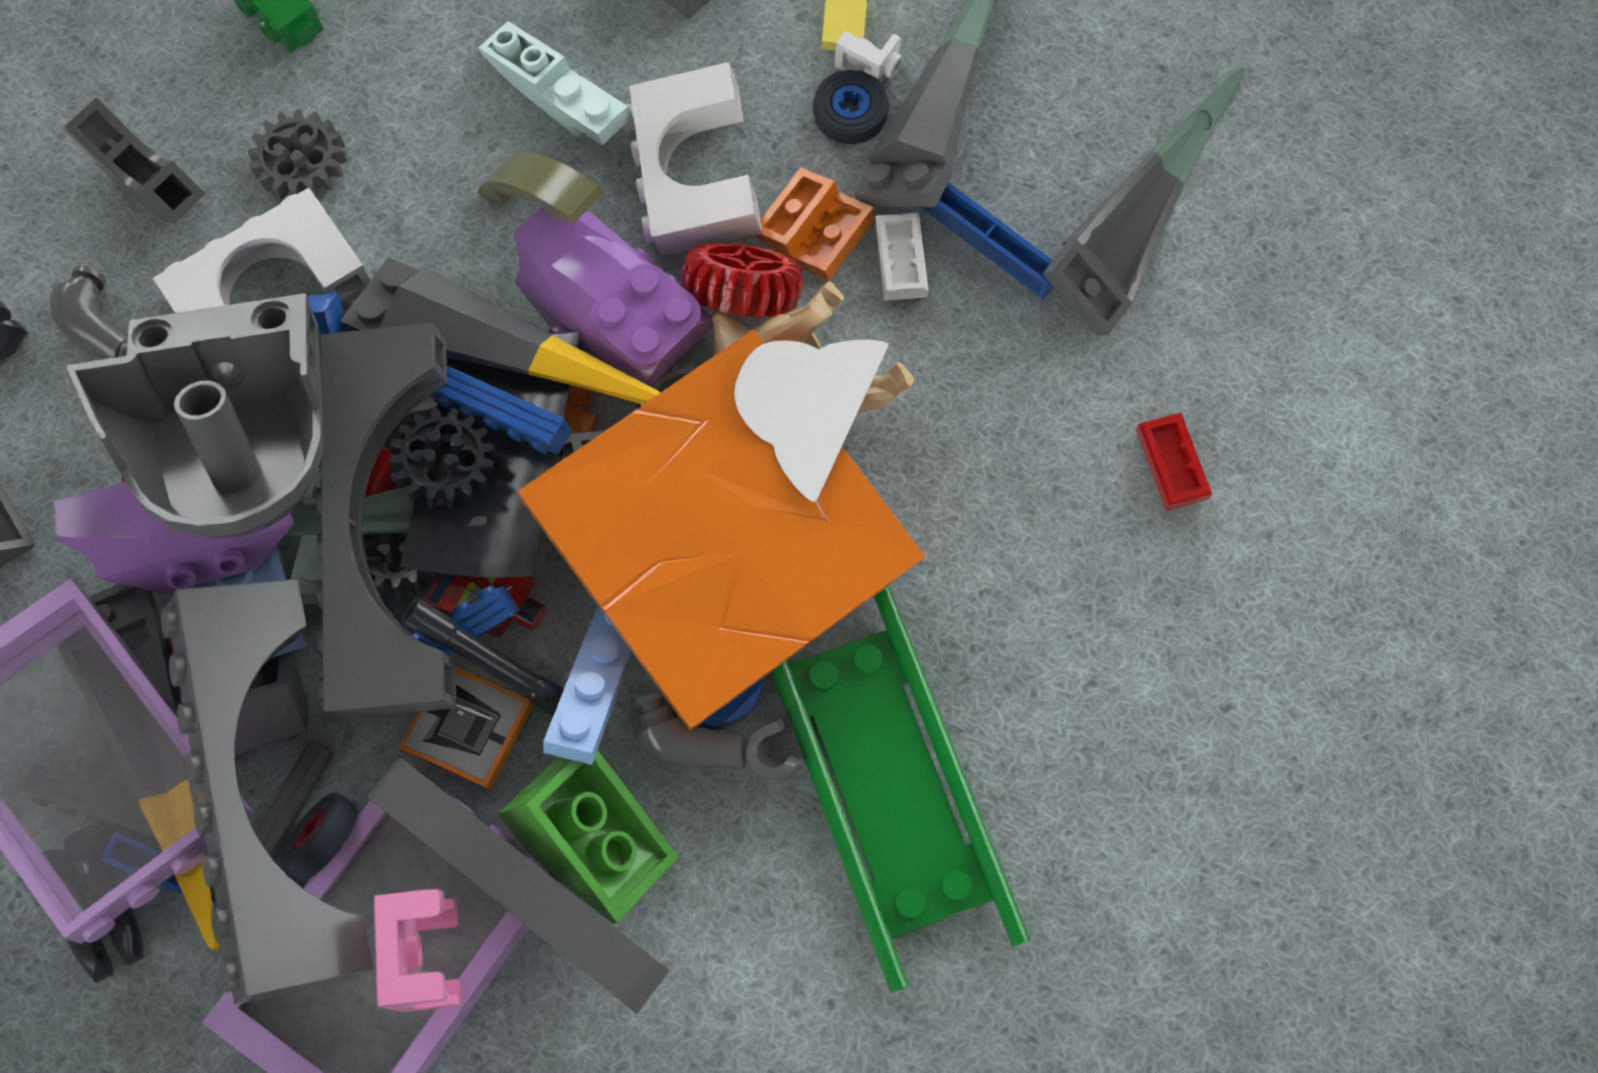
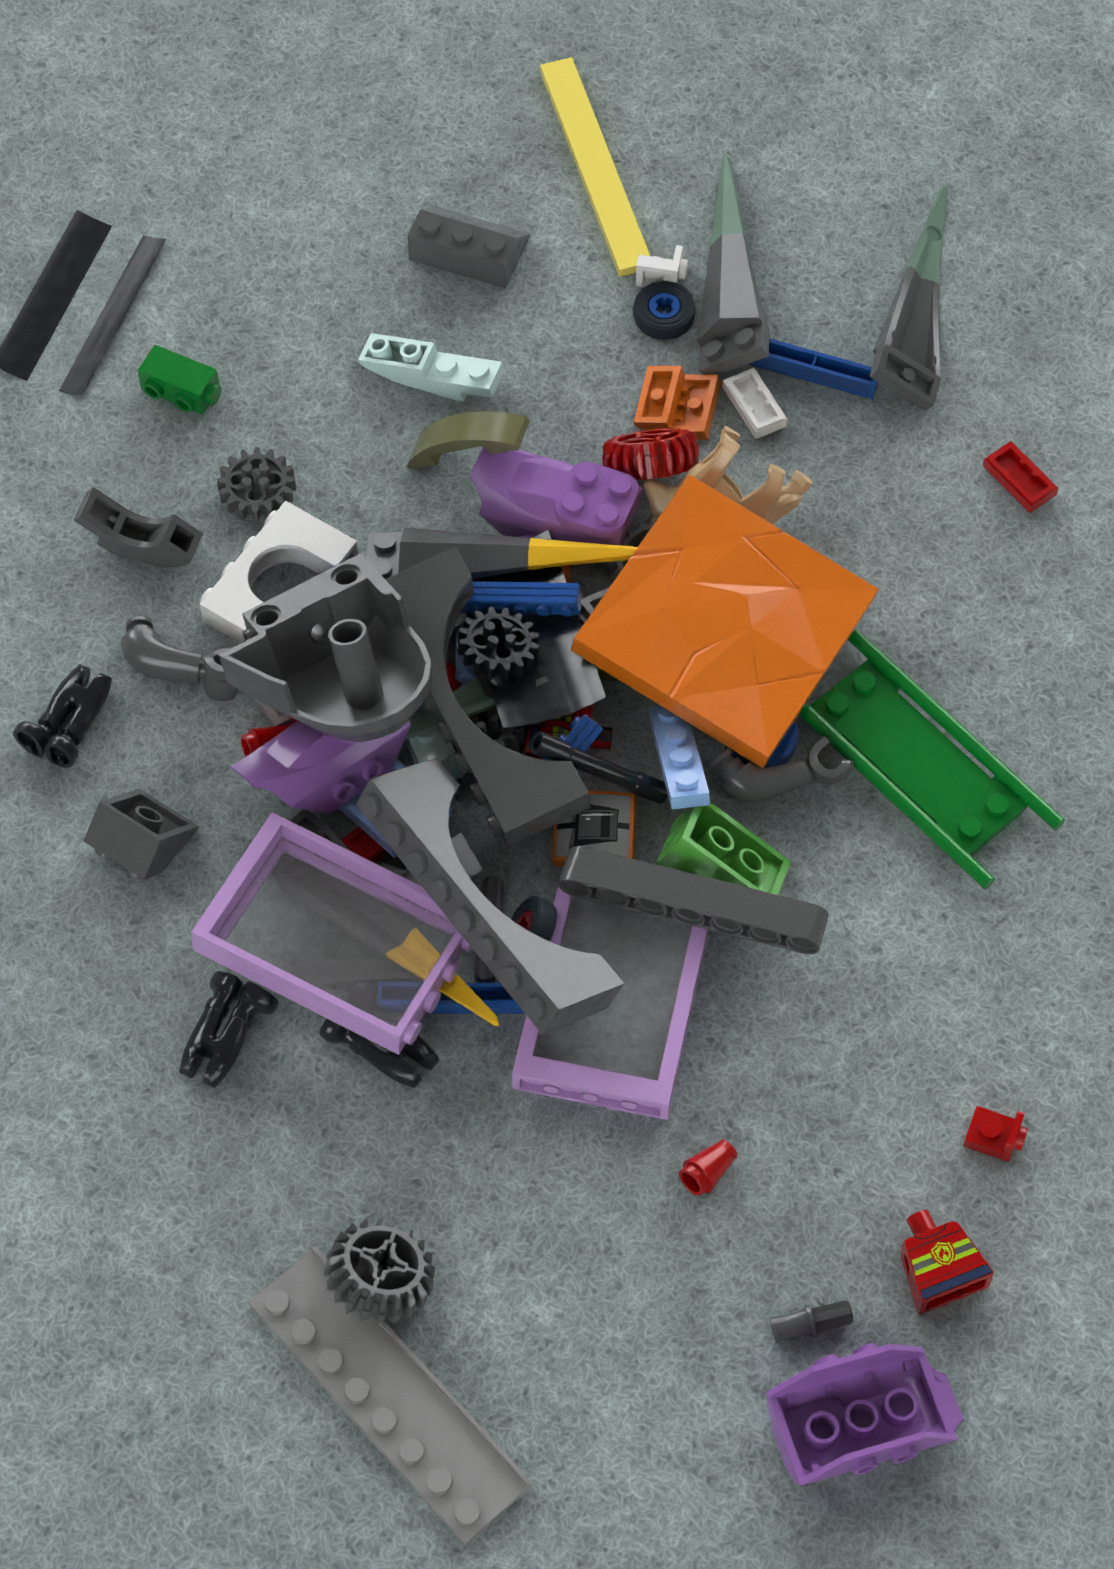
camera: 20 degrees left, 10 degrees down
(401, 953) = (637, 957): bright pink panel -> none
(664, 116) = (573, 427): white arch -> none
(806, 402) = (749, 511): white sticker -> none

